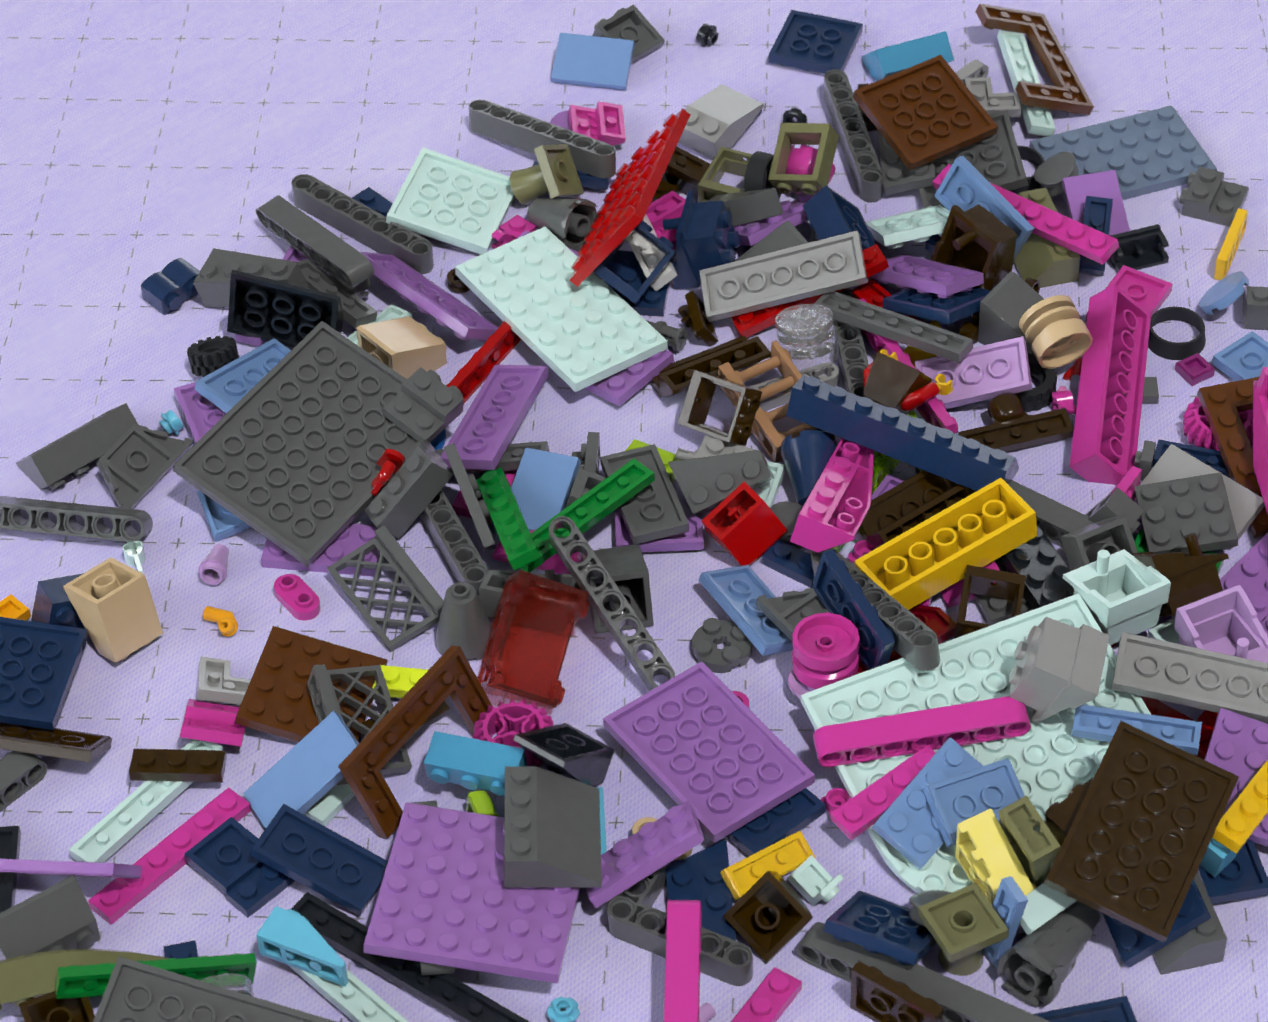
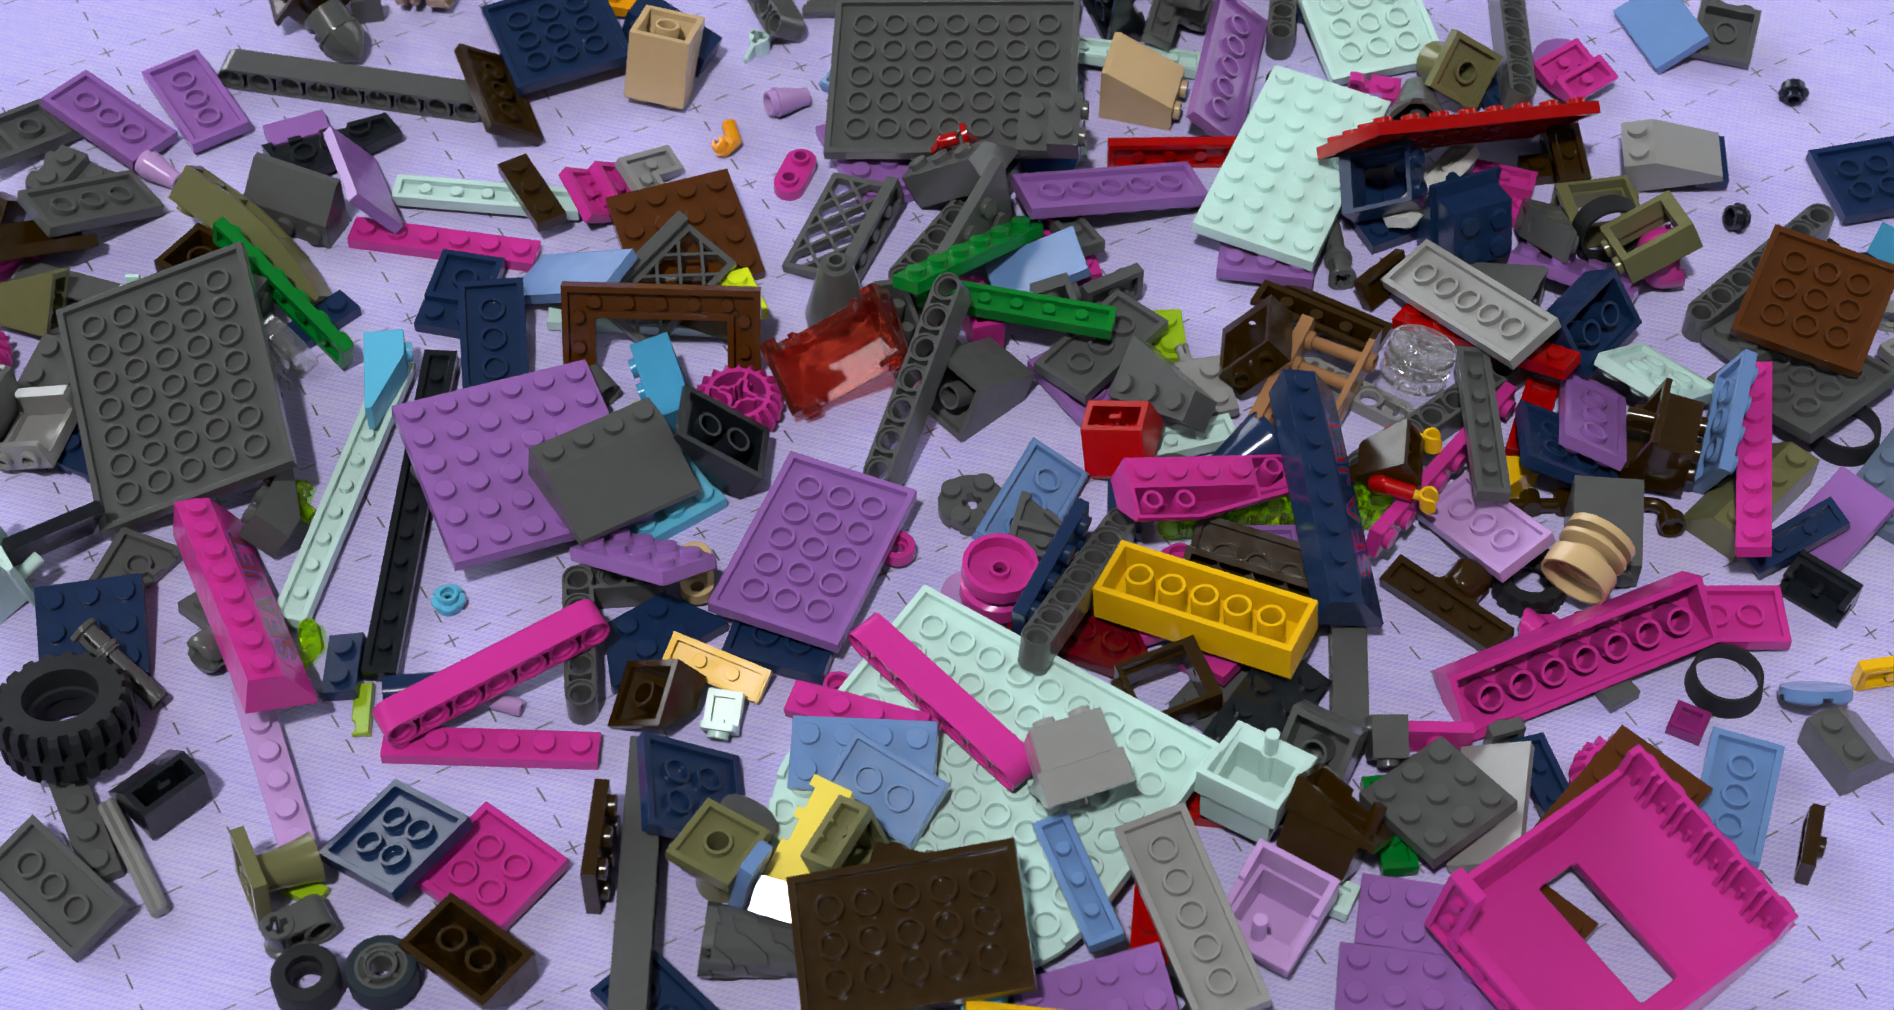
camera: 55 degrees right, 5 degrees up
(1053, 171) = (1860, 458): dark grey piece -> none

